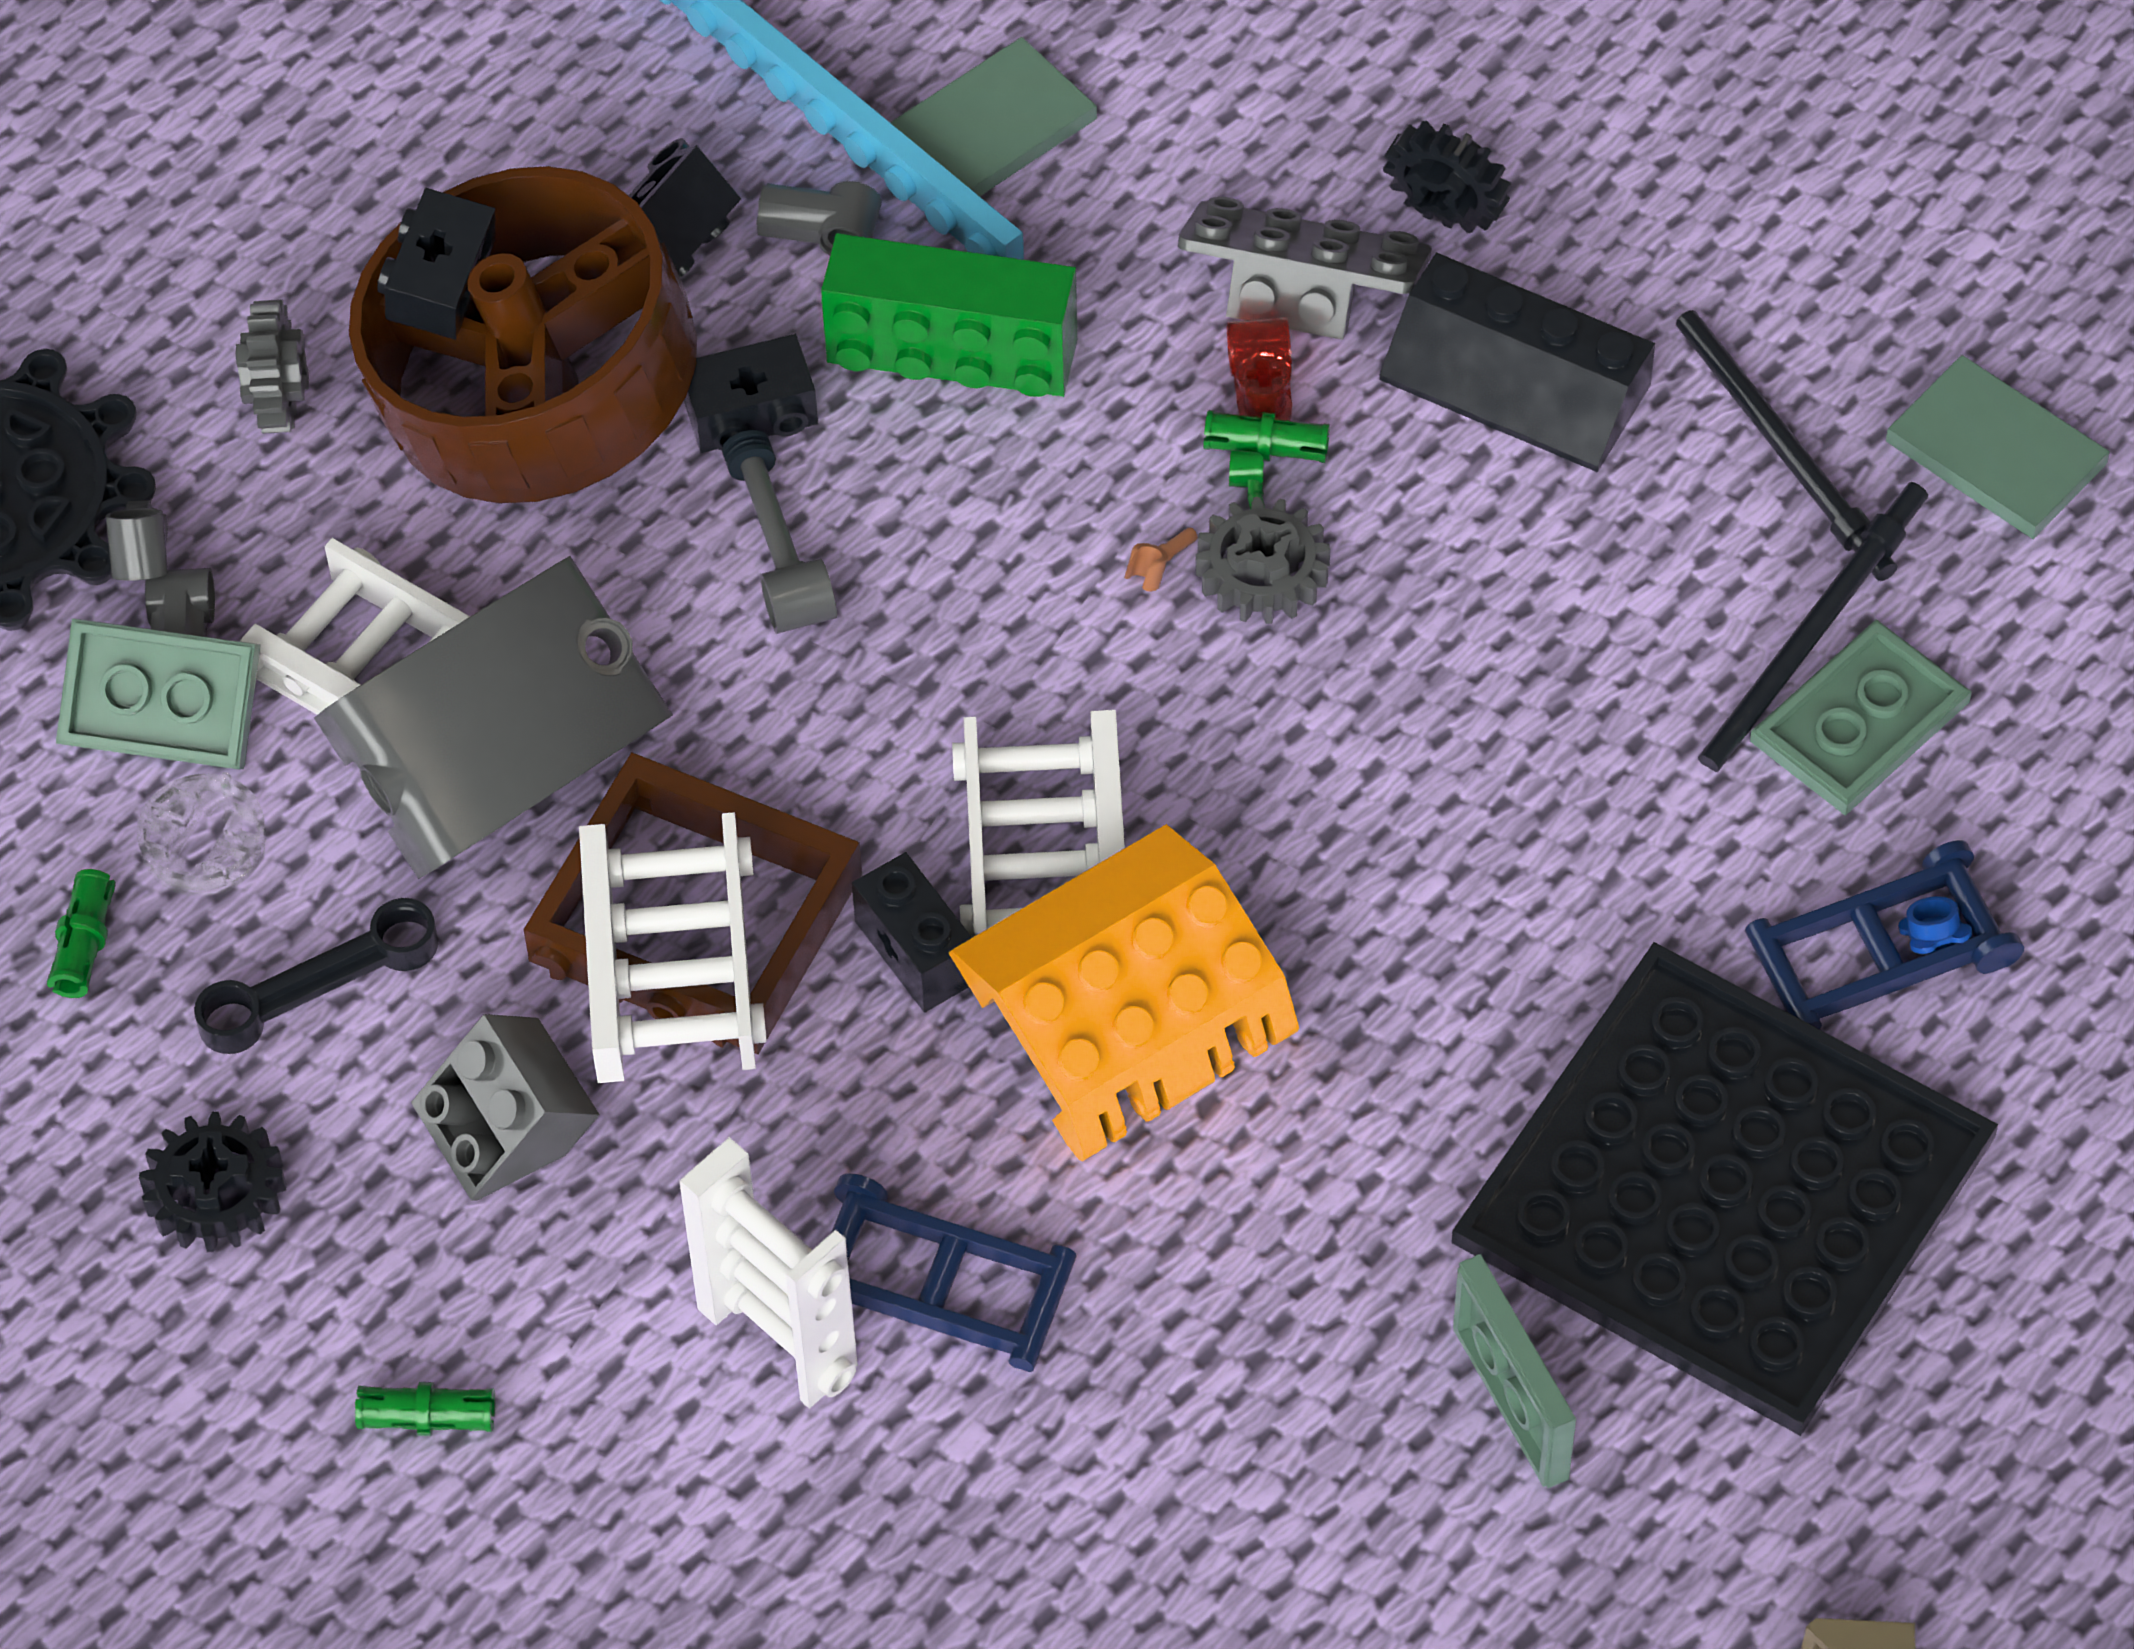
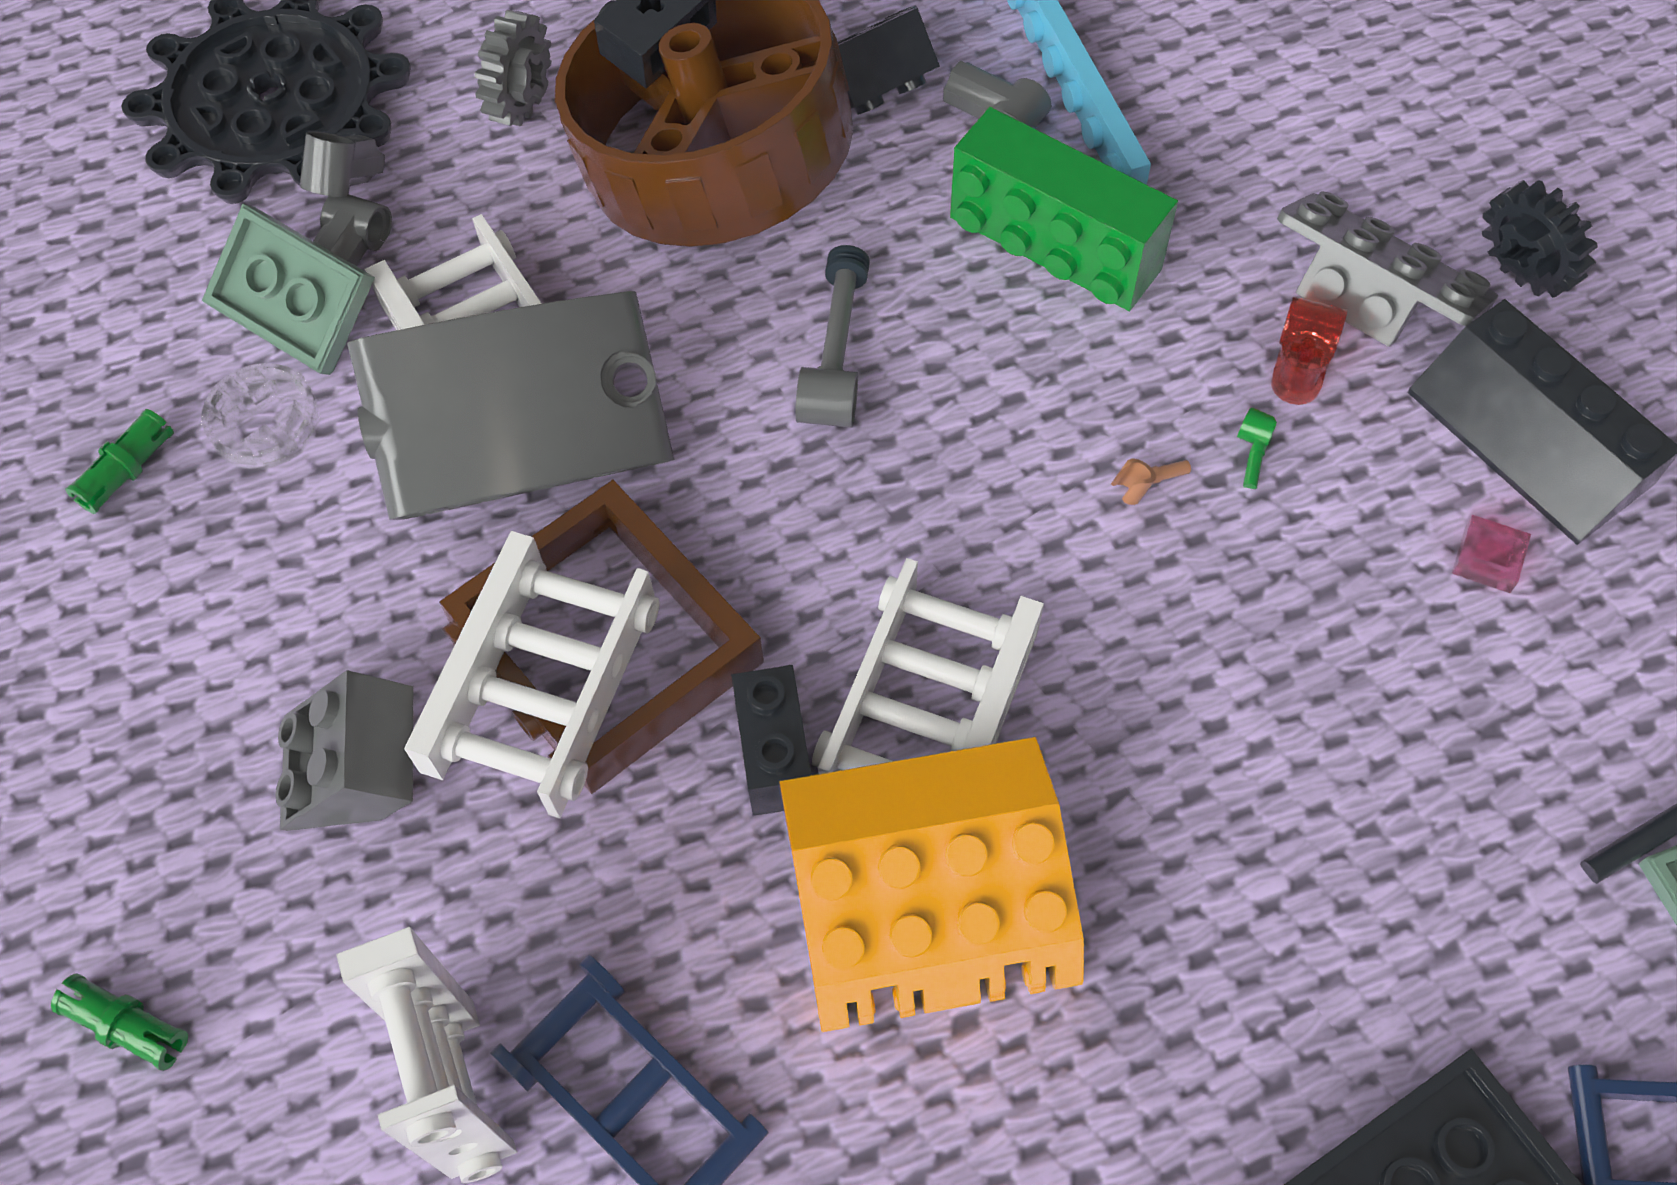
camera: 25 degrees right, 5 degrees up
(238, 1190) = (69, 724): black gear -> none
(316, 976) = (271, 571): black piece -> none
(751, 389) = (872, 214): black brick -> none
(998, 117) = (1175, 75): sand green tile -> none
(1260, 562) = (1234, 516): dark grey gear -> none
(1266, 436) = (1288, 405): green pin -> none
(1517, 509) = (1491, 554): none -> clear pink plate

